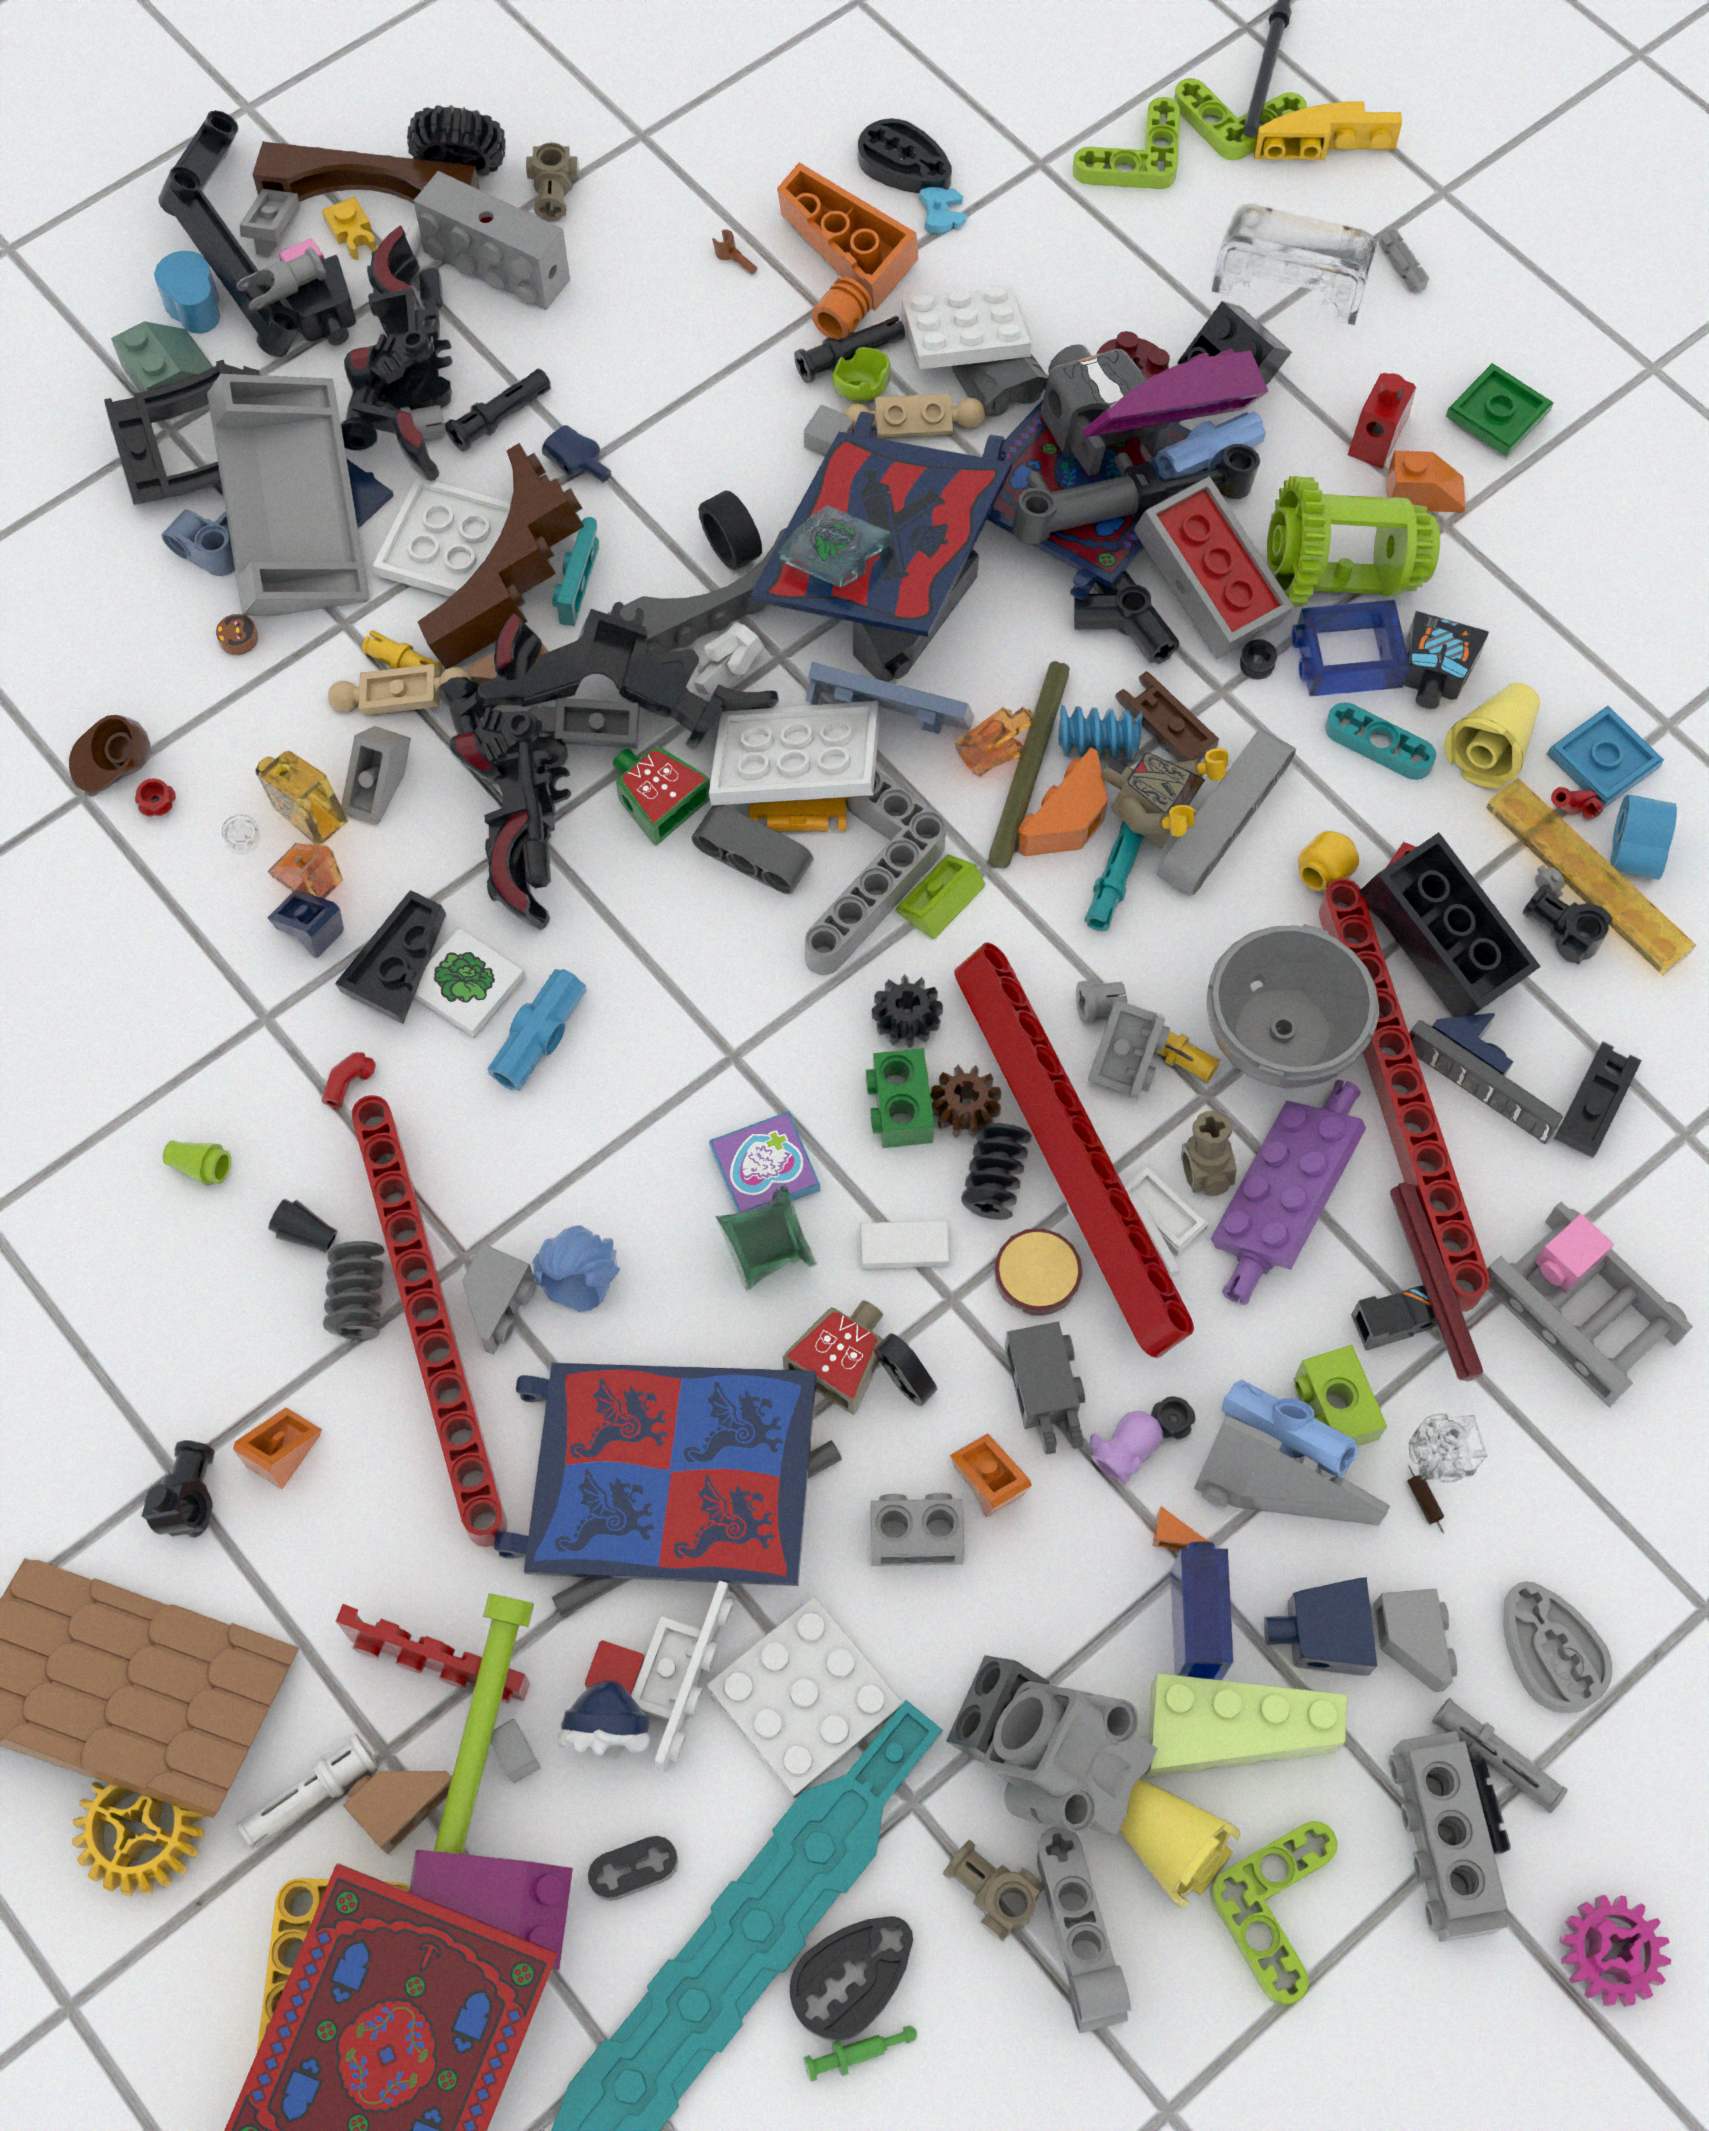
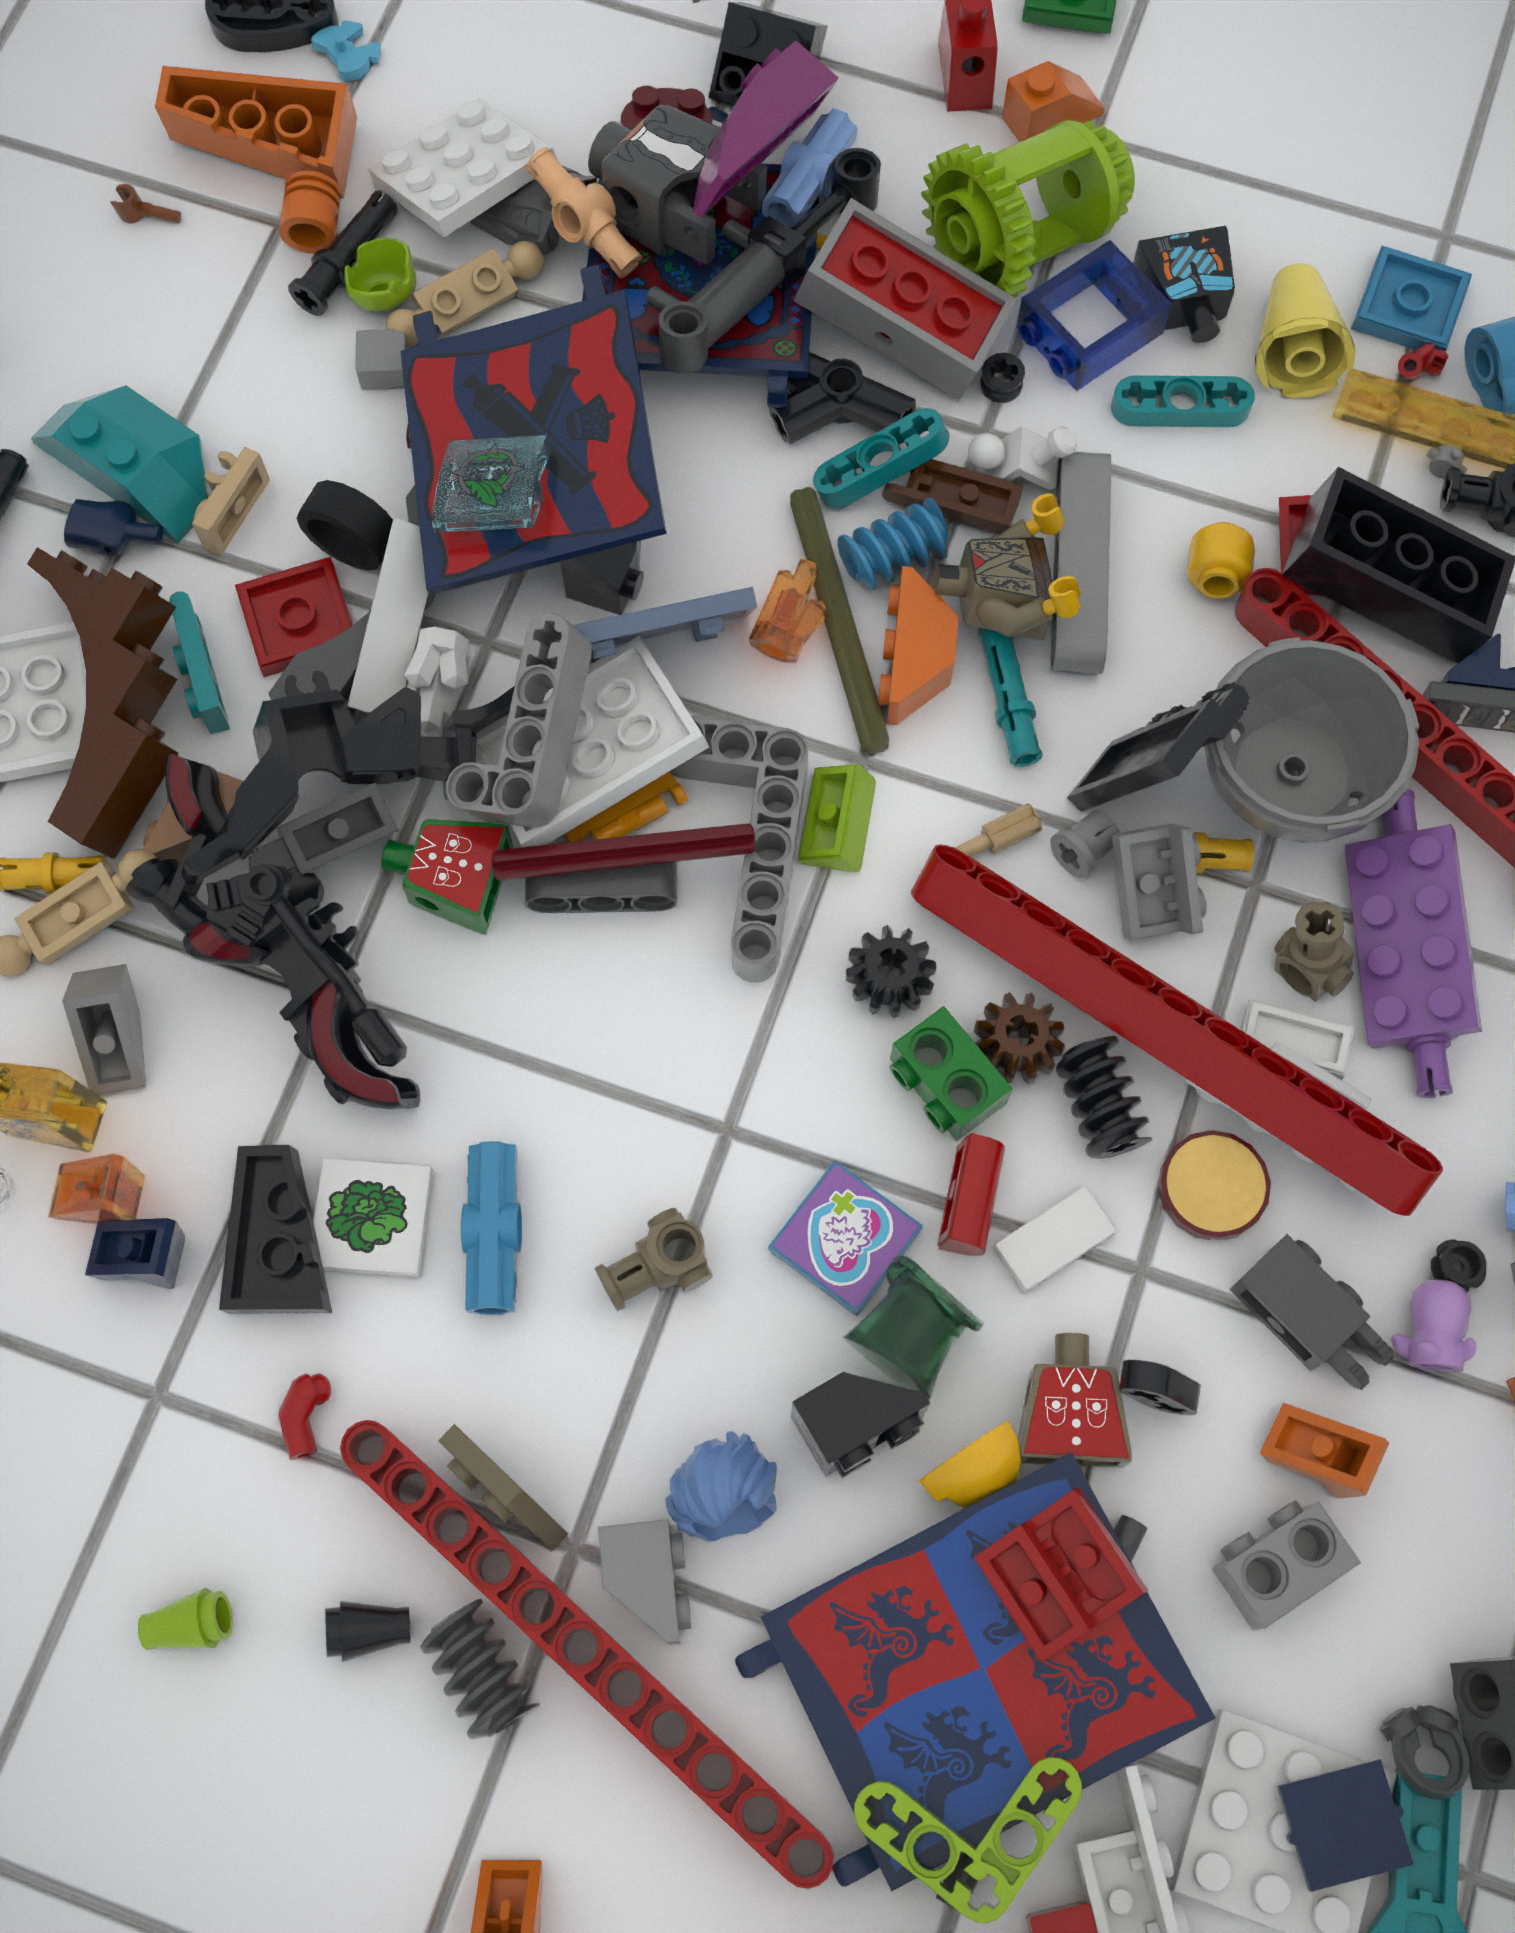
camera: 30 degrees left, 5 degrees up
(437, 1190) = (503, 1493): none -> dark tan wing
(597, 1579) = (989, 1855): none -> lime beam
(622, 416) = (131, 455): none -> teal wedge
(625, 1108) = (652, 1267): none -> dark tan connector
(663, 569) = (293, 612): none -> red tile
(666, 475) = (231, 499): none -> tan plate
(689, 1273) = (853, 1416): none -> black slope
(720, 605) = (392, 620): none -> white sticker
(749, 1346) = (977, 1469): none -> yellow brick
(756, 1438) = (1060, 1574): none -> red slope
(761, 723) = (555, 658): none -> light grey beam
(774, 834) = (623, 851): none -> dark red axle
(843, 1708) = (1345, 1825): none -> dark blue piece
(865, 1183) = (971, 1195): none -> red brick
(920, 1685) = (1442, 1726): none -> dark grey piece
(1022, 398) = (583, 212): none -> light nougat pin
(1048, 964) = (1004, 831): none -> tan axle
(1092, 673) = (888, 439): none -> teal beam
(1187, 952) = (1160, 748): none -> black hinge
(1231, 717) = (1023, 454): none -> white piece

